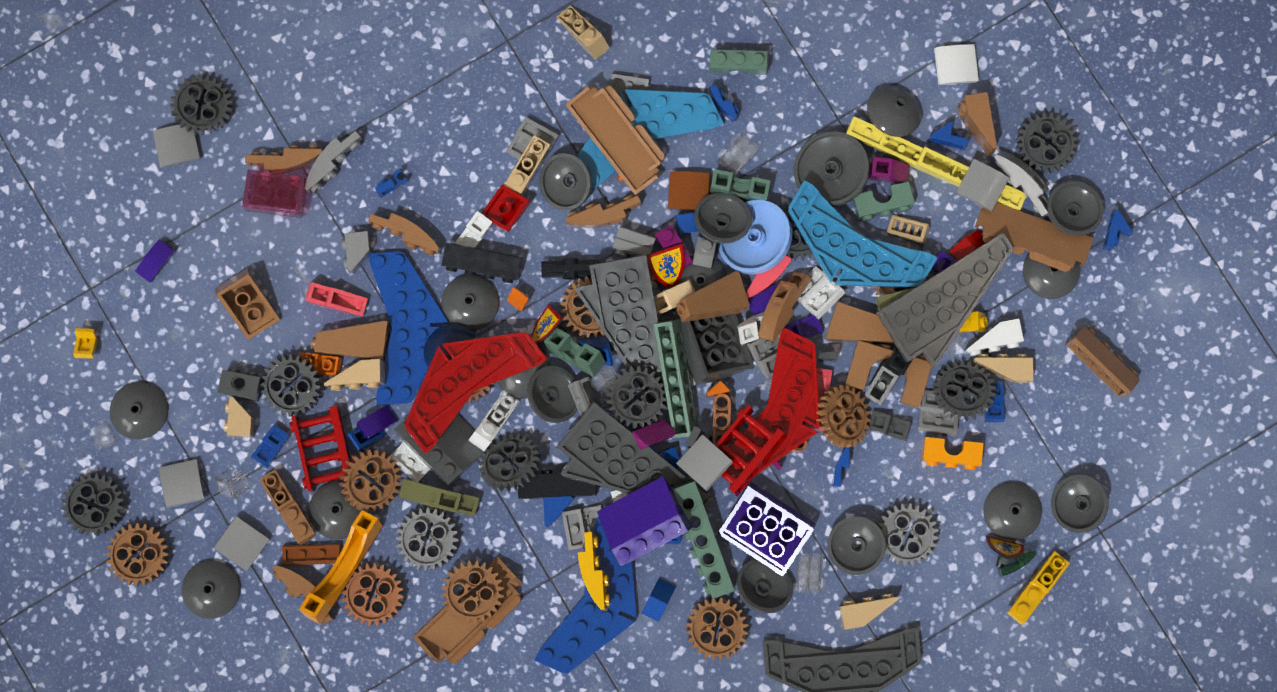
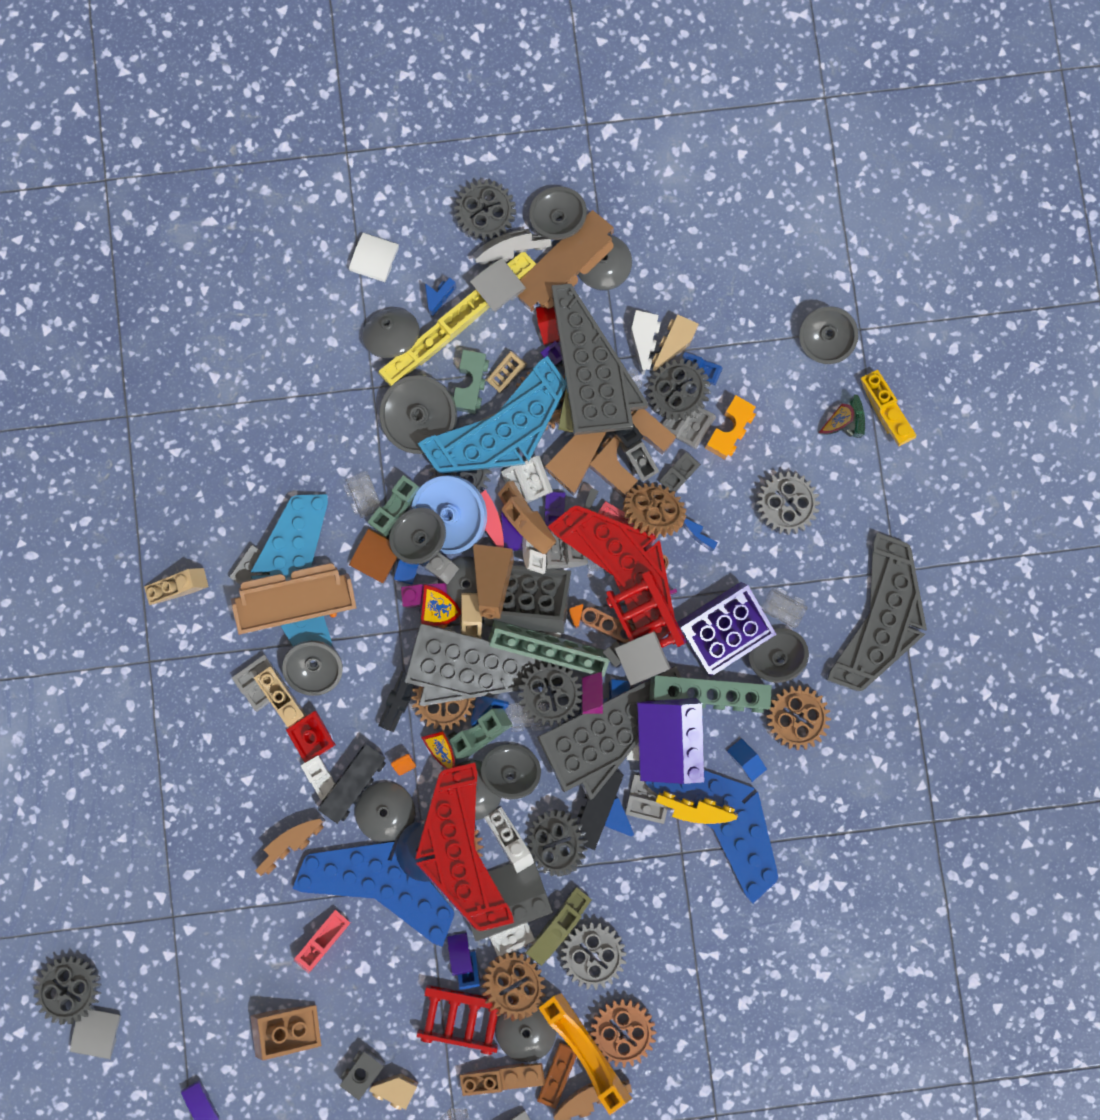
camera: 70 degrees left, 0 degrees up
(270, 446) = (435, 1069): blue slope -> none
(274, 194) = (190, 956): clear pink brick -> none
(280, 372) = (402, 1017): dark grey gear -> none
(292, 159) = (165, 923): medium nougat slope -> none
(324, 167) = (186, 894): light grey slope -> none
(325, 364) = (377, 984): orange slope -> none
(357, 249) = (284, 899): light grey slope -> none
(358, 341) = (372, 940): medium nougat slope -> none
(363, 373) = (406, 948): tan slope -> none
(386, 186) = (235, 842): blue plate -> none
(453, 639) = (684, 952): medium nougat slope -> none
(461, 577) = (680, 929): medium nougat gear -> none
(582, 394) = (524, 744): light grey hinge -> none
(596, 217) = (359, 654): medium nougat slope -> none
(633, 243) = (401, 631): light grey brick -> none
(727, 108) = (314, 484): blue slope -> none
(738, 60) = (270, 462): sand green arch -> none
(843, 550) = (788, 563): dark grey dish -> none
(862, 613) = (842, 577): tan slope -> none
(888, 170) = (444, 363): magenta slope -> none
(975, 322) = (622, 349): yellow bracket -> none
(978, 120) = (435, 260): medium nougat slope -> none
(999, 513) = (800, 409): dark grey dish -> none
(1103, 362) = (709, 255): medium nougat slope -> none
(1116, 226) = (590, 185): blue slope -> none

